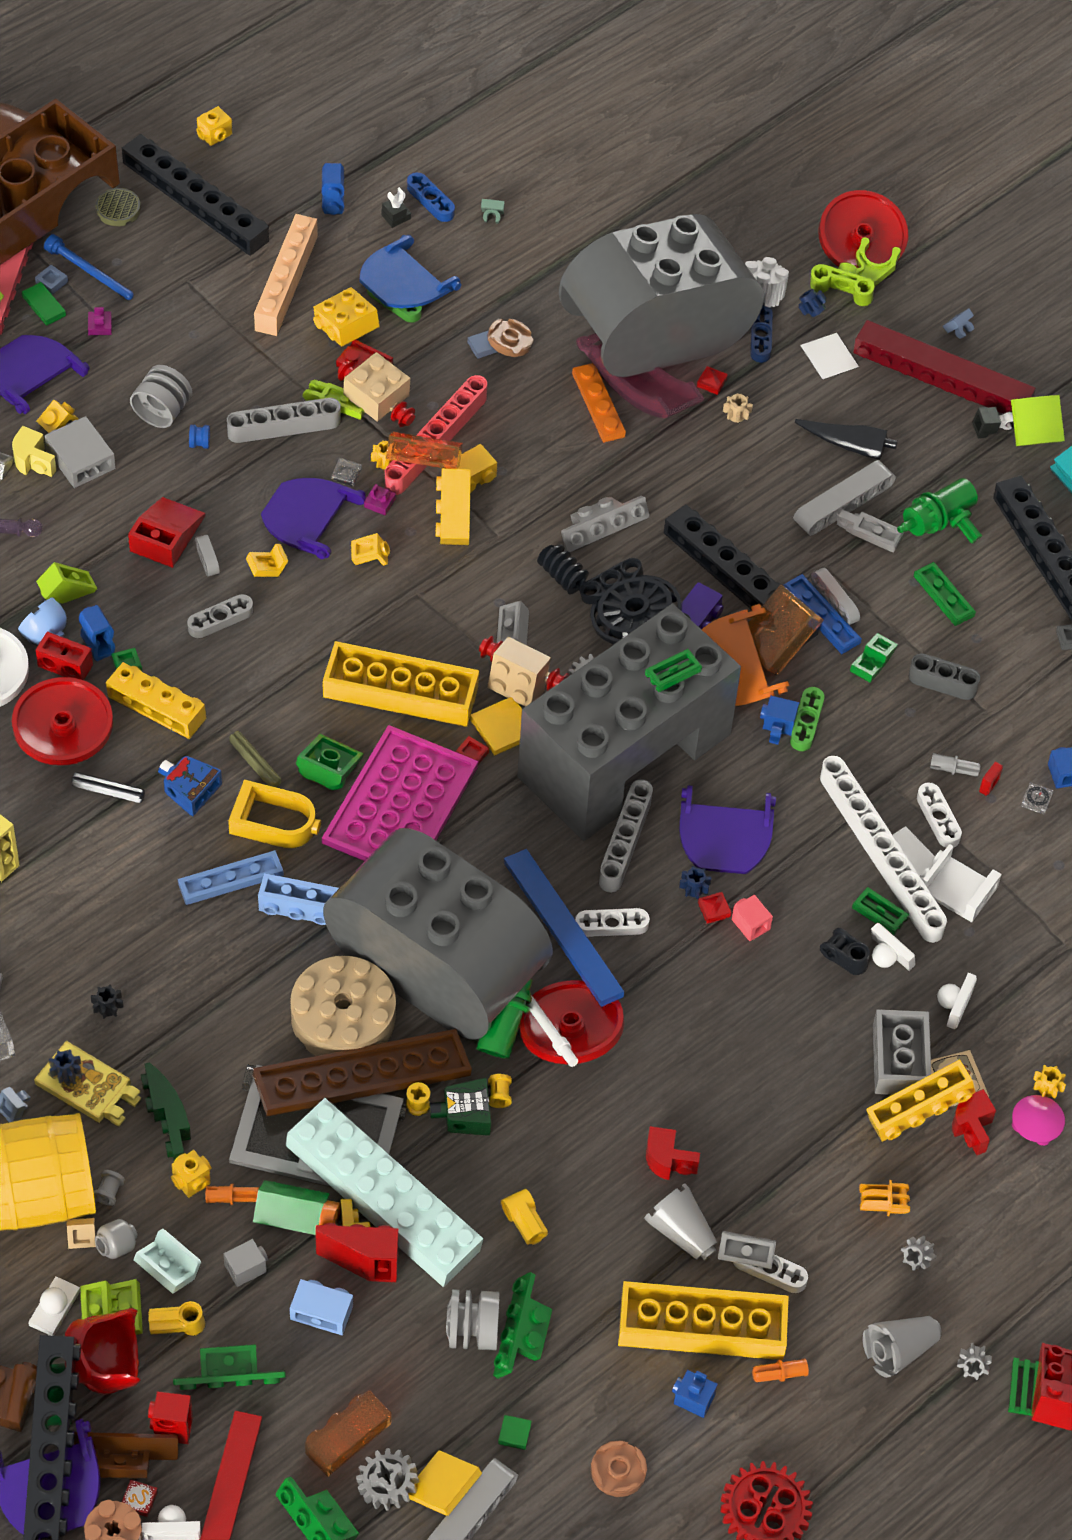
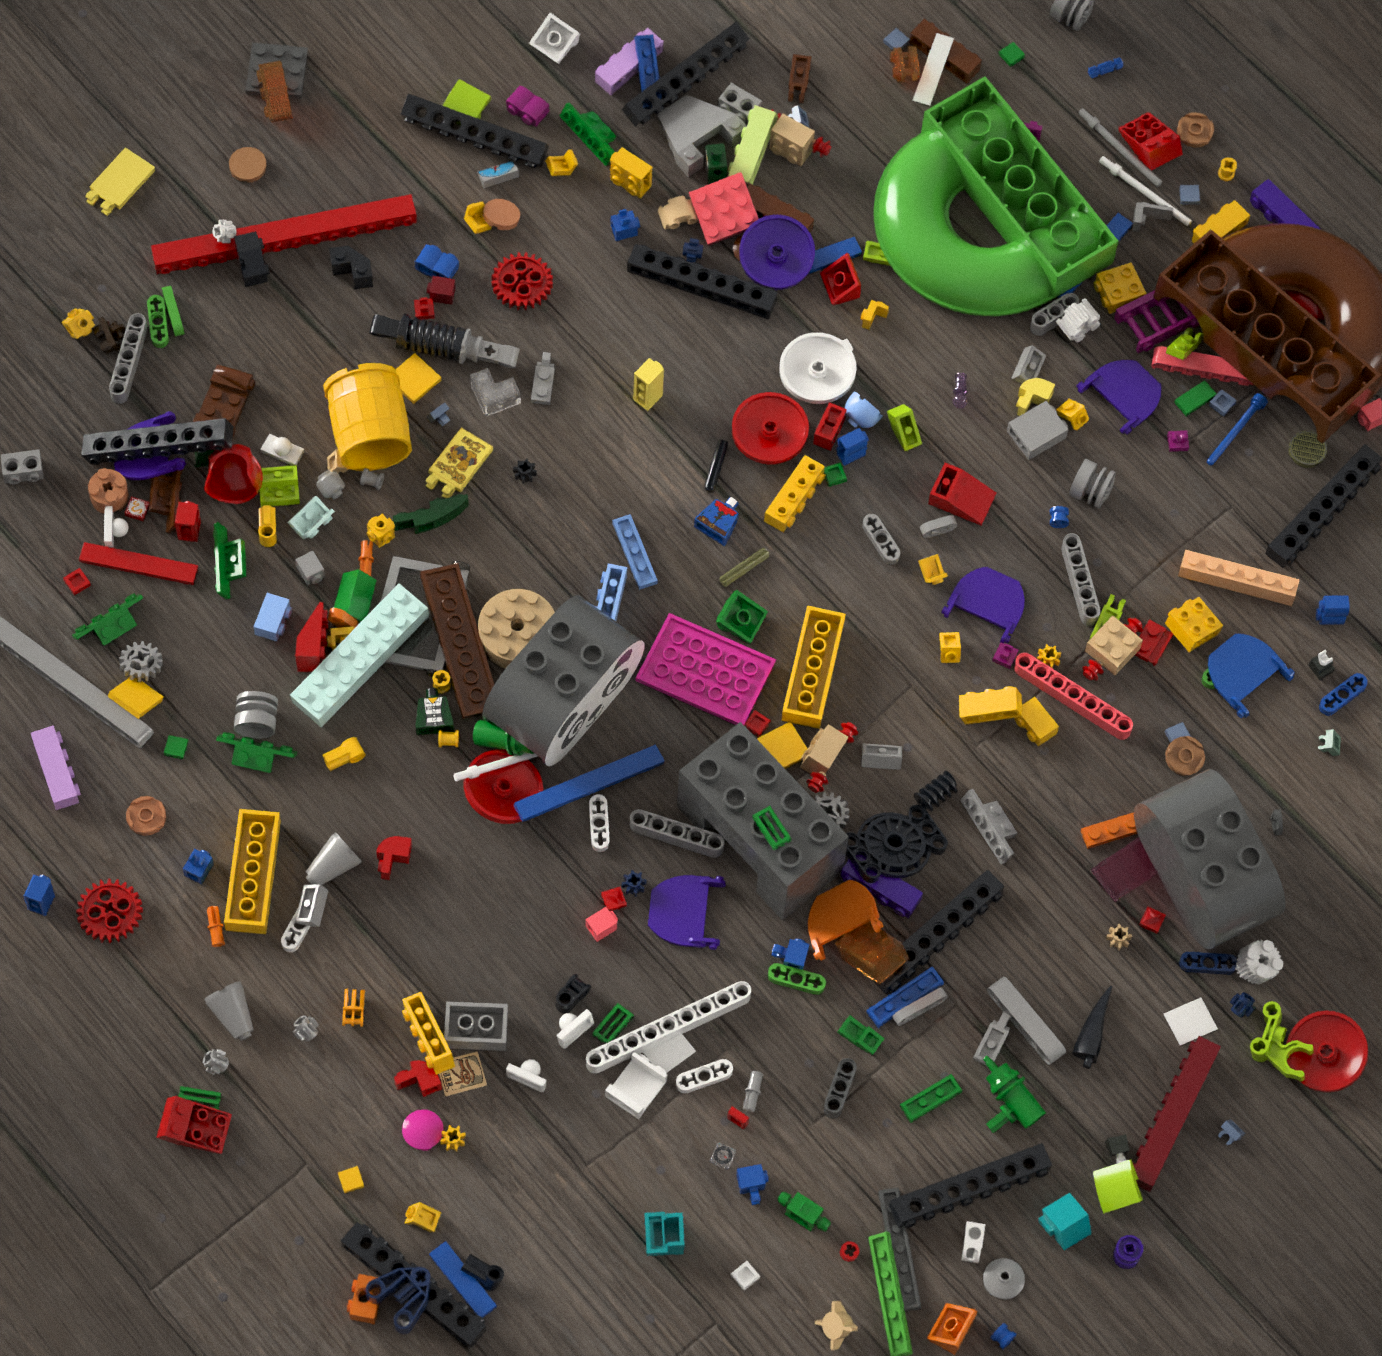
camera: 90 degrees right, 10 degrees up
(65, 1066) = (465, 443): dark blue gear -> none
(287, 799) = (696, 557): yellow window -> none
(346, 472) = (1033, 630): clear tile -> none
(347, 1432) = (177, 636): clear orange brick -> none
(424, 450) = (1037, 676): clear orange brick -> none

